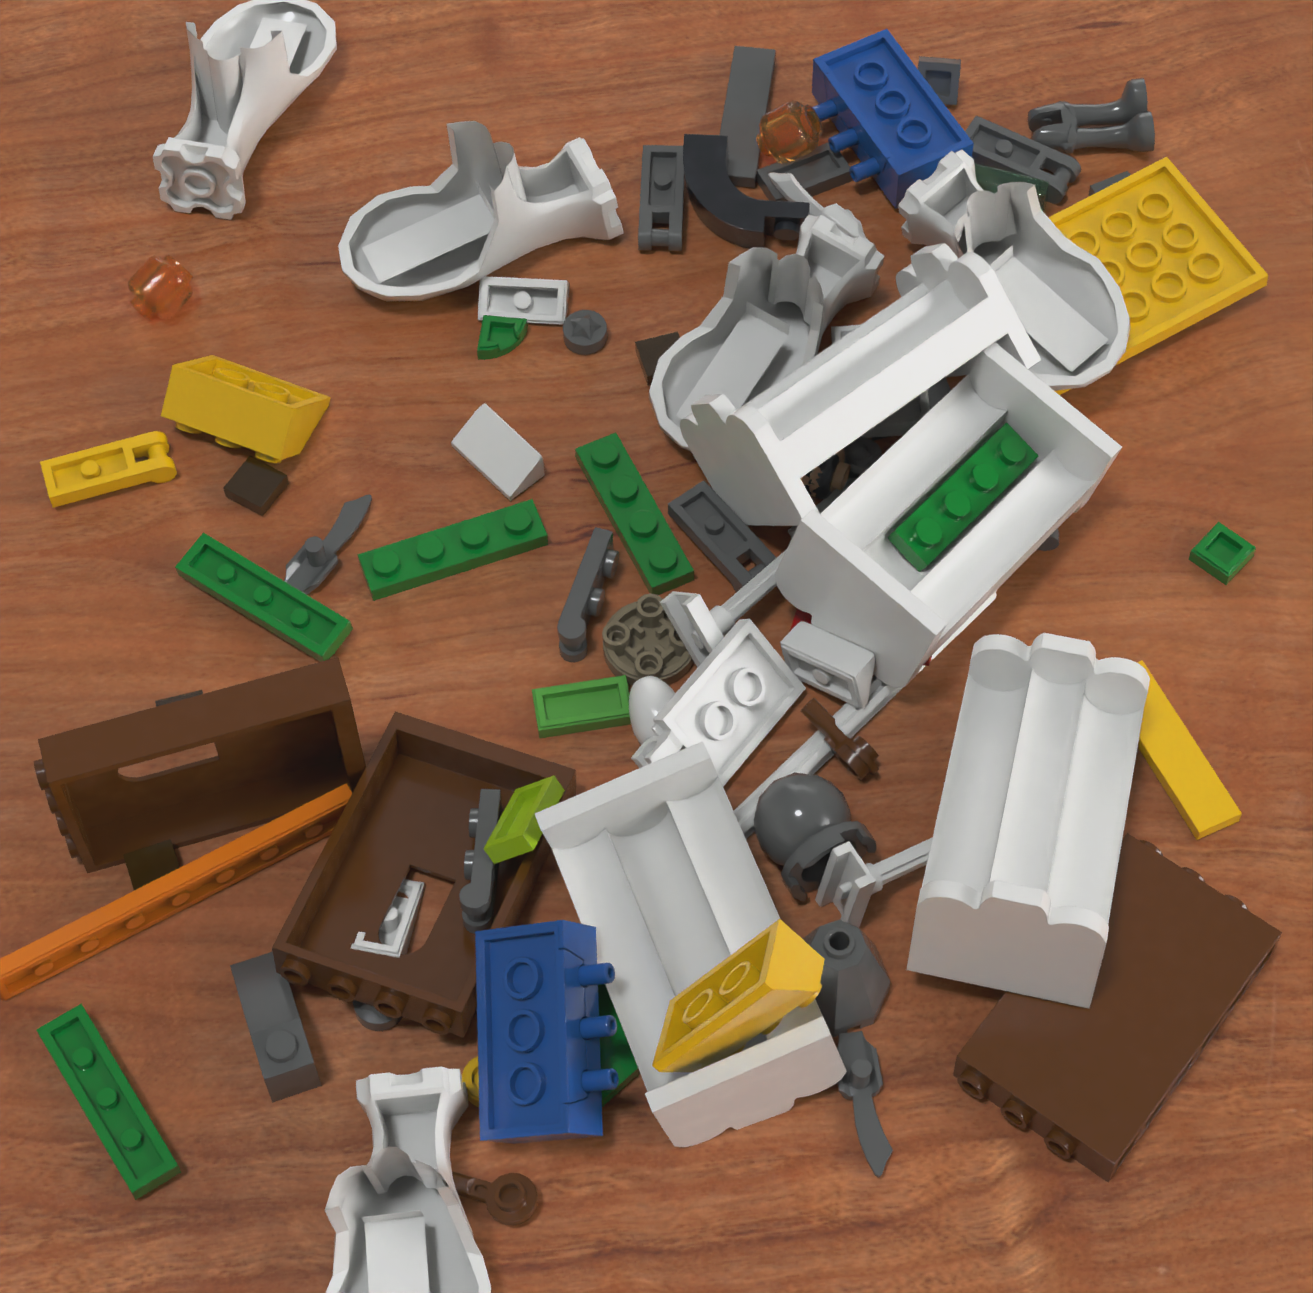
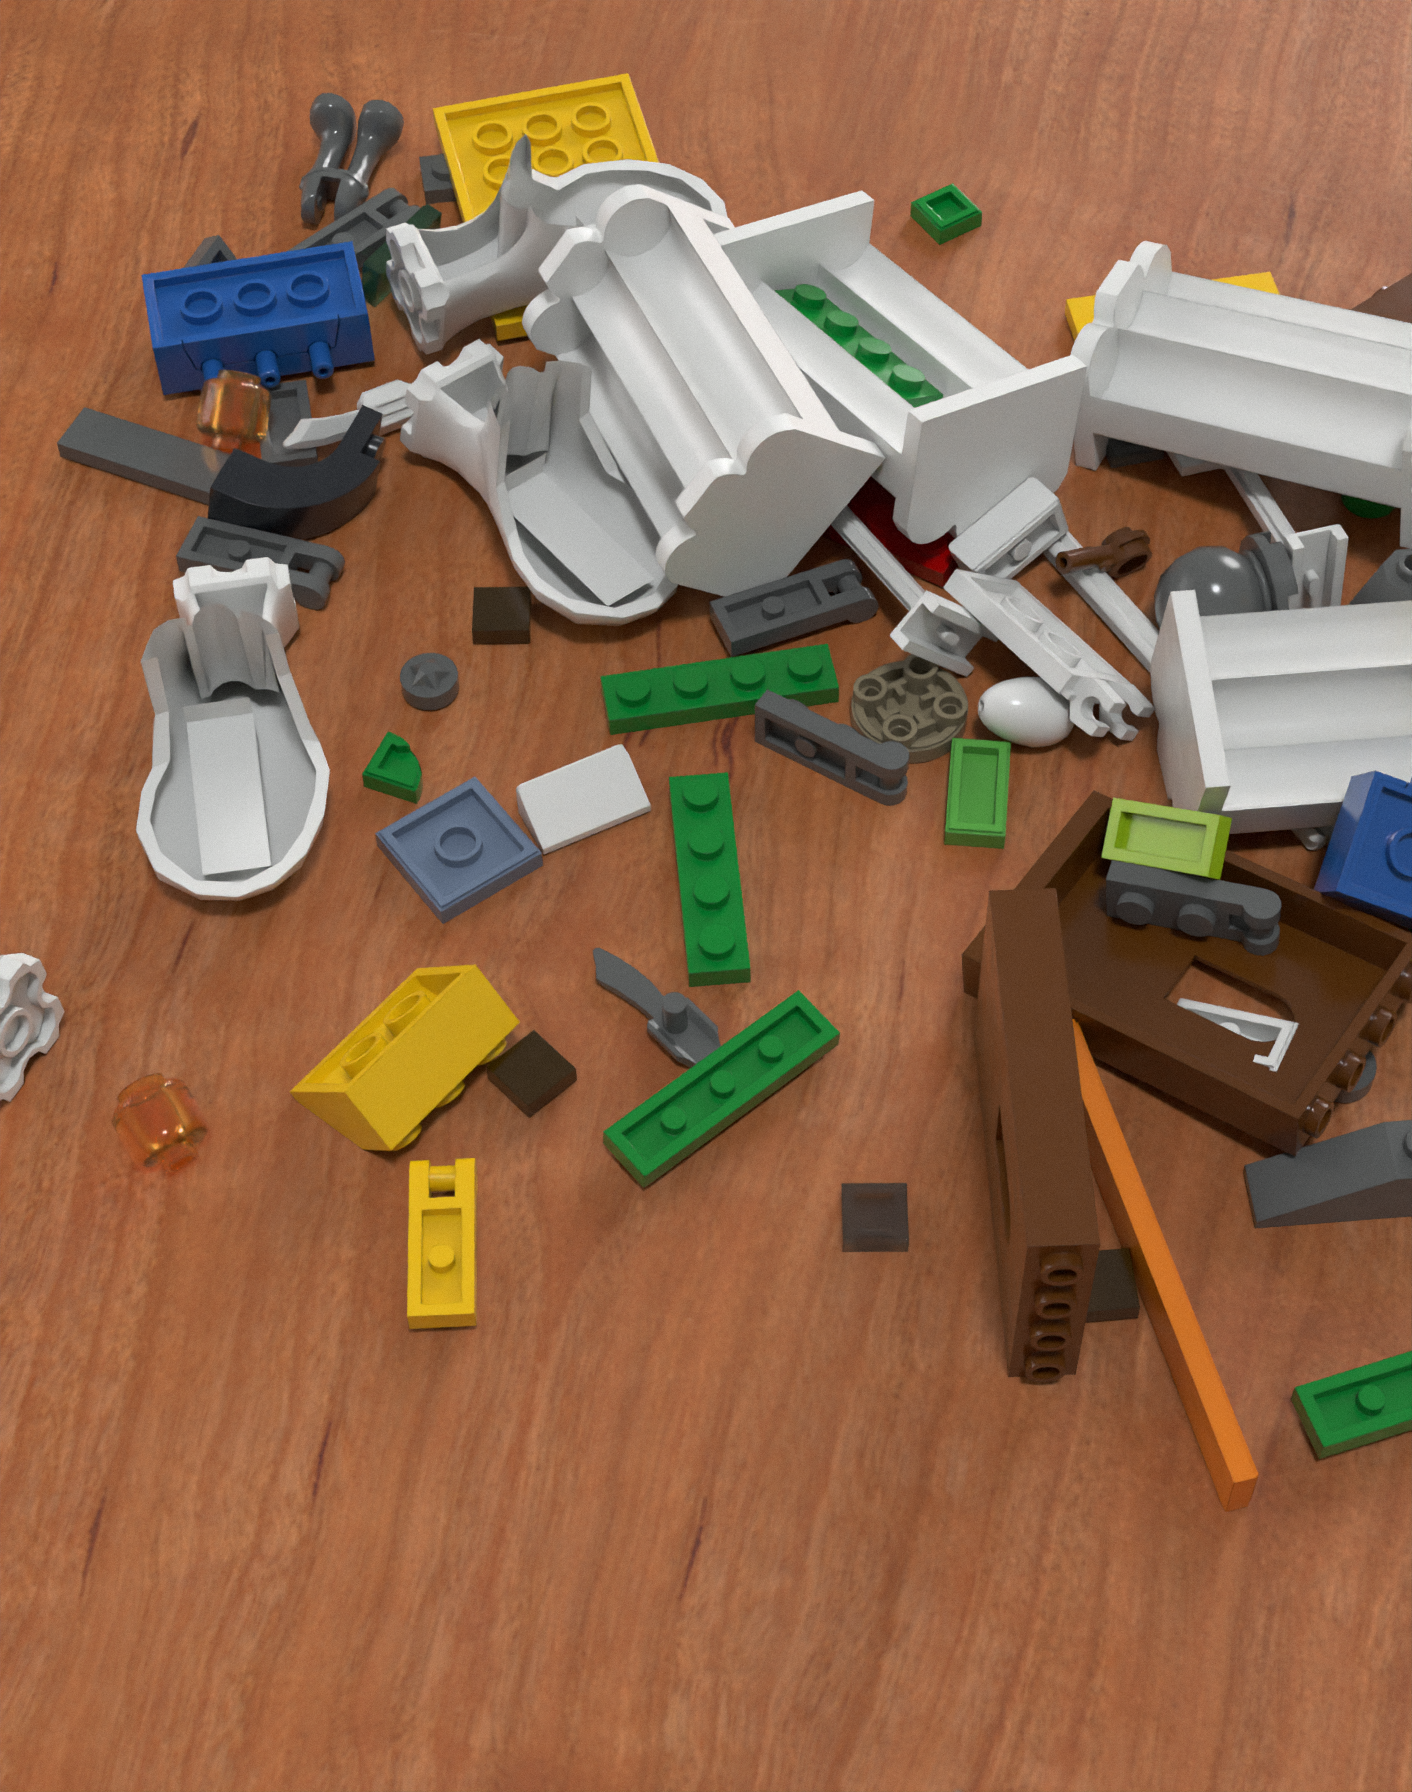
camera: 75 degrees left, 5 degrees down
(437, 392) = (459, 849): none -> sand blue tile
(533, 299) = (355, 729): white slope -> none

